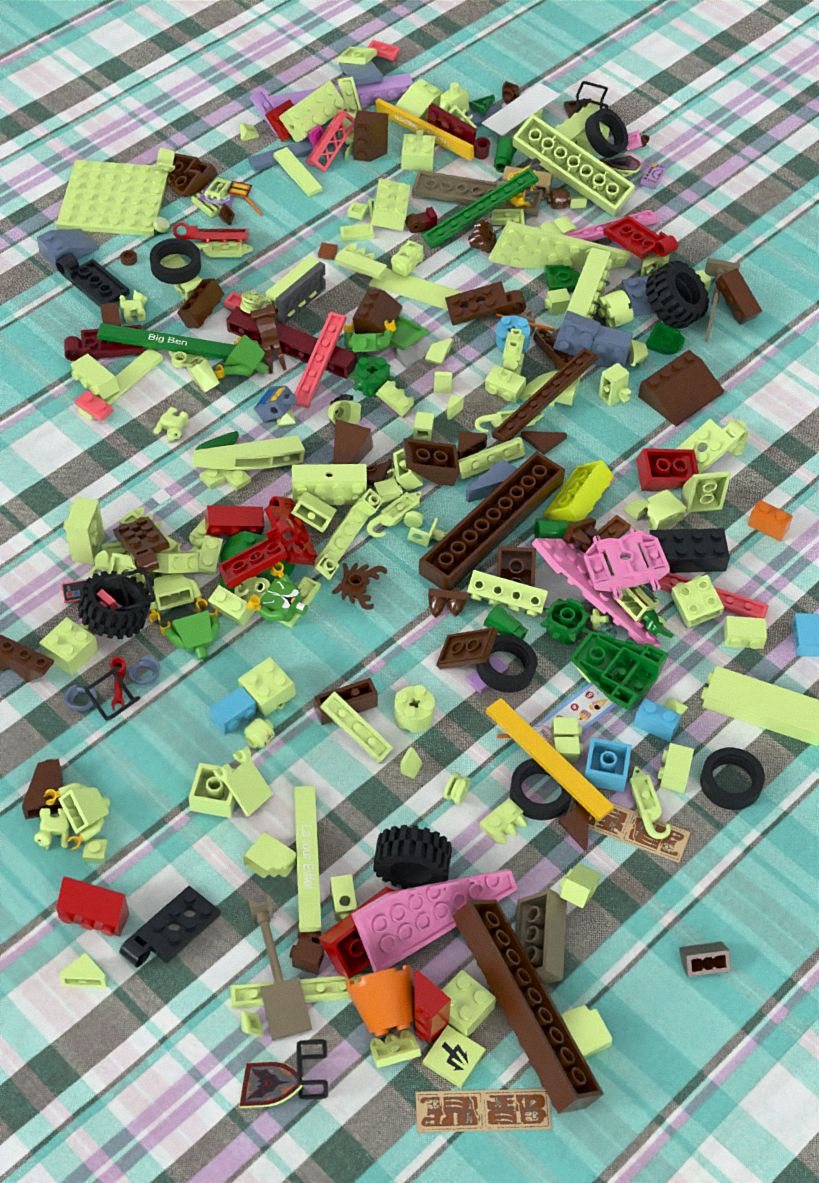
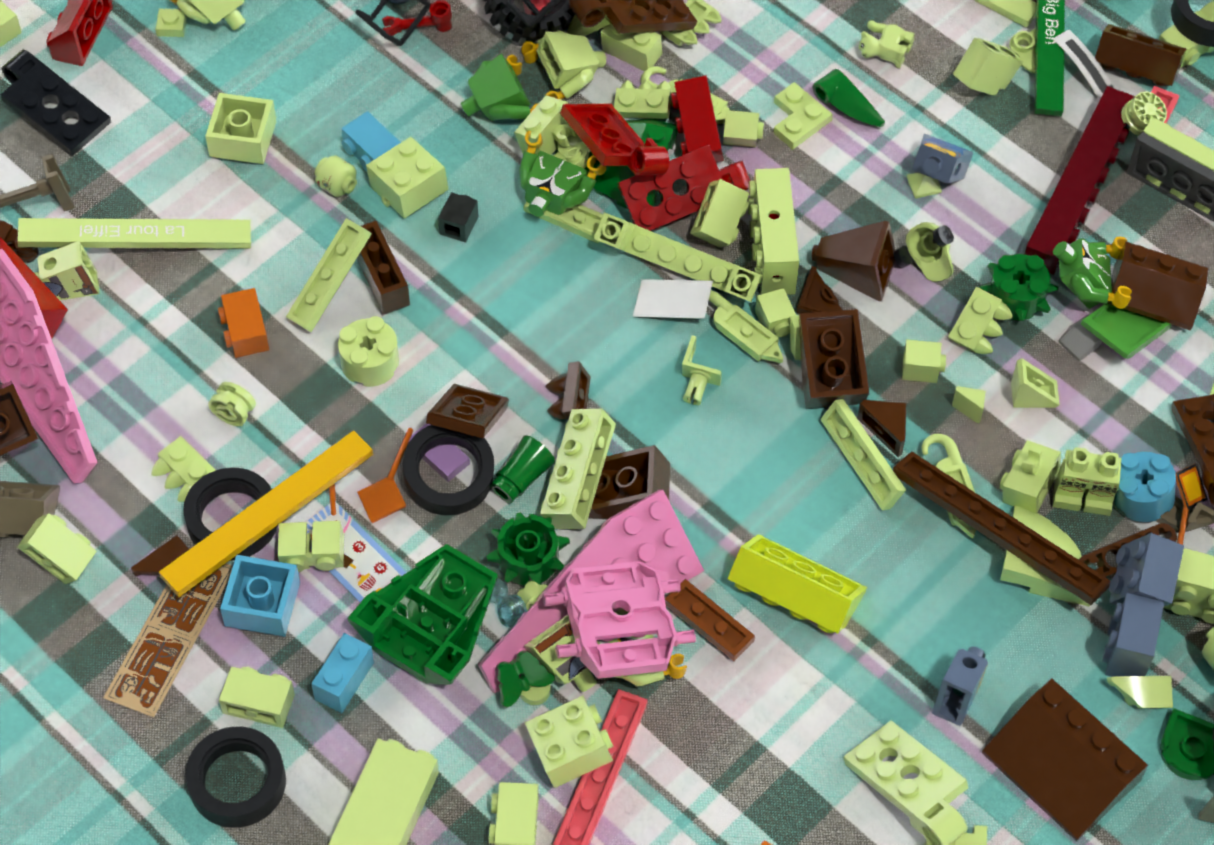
camera: 90 degrees right, 5 degrees up
(146, 662) = (439, 37): sand blue piece -> none
(161, 496) = (754, 46): white sticker -> none
(177, 562) = (611, 56): yellowish green brick -> none
(199, 330) = (1084, 61): none -> white sticker
(240, 496) = (742, 128): none -> yellowish green brick
(243, 359) = (1032, 118): bright green torso -> none
(245, 782) = (242, 156): yellowish green flag -> none
(252, 455) = (829, 141): yellowish green slope -> none
(269, 334) = (1103, 122): reddish brown flag -> none
(270, 857) = (141, 193): yellowish green piece -> none
(300, 659) = (458, 217): none -> pearl dark grey brick
(319, 359) = (1036, 207): coral tile -> none
(355, 583) = (594, 277): reddish brown animal -> none
(372, 544) = (673, 298): none -> white sticker
(386, 785) = (244, 322): none -> orange brick
(410, 763) = (281, 352): yellowish green slope -> none
(412, 856) = (102, 334): black tyre -> none
(413, 519) = (726, 349): yellowish green tile -> none
(438, 351) = (1098, 382): yellowish green slope -> none
(489, 481) = (816, 462): sand blue slope -> none
(491, 522) = (726, 453): reddish brown brick -> none
(522, 704) = (384, 496): none -> orange piece
(543, 440) = (917, 538): reddish brown tile -> none
(550, 528) = (713, 539): green plant -> none
(581, 531) = (698, 563): reddish brown tile -> none
(614, 385) = (1043, 639): yellowish green brick -> none
(637, 508) = (777, 674): yellowish green slope -> none
(643, 423) = (965, 675): none -> sand blue torso
(647, 802) = (201, 653): yellowish green plate -> none
(664, 510) = (769, 708): yellowish green piece -> none
(665, 468) = (856, 715): red slope -> none
(675, 705) = (374, 707): yellowish green slope -> none
(694, 549) = (684, 742): black brick -> none
(705, 491) = (807, 769): yellowish green slope -> none

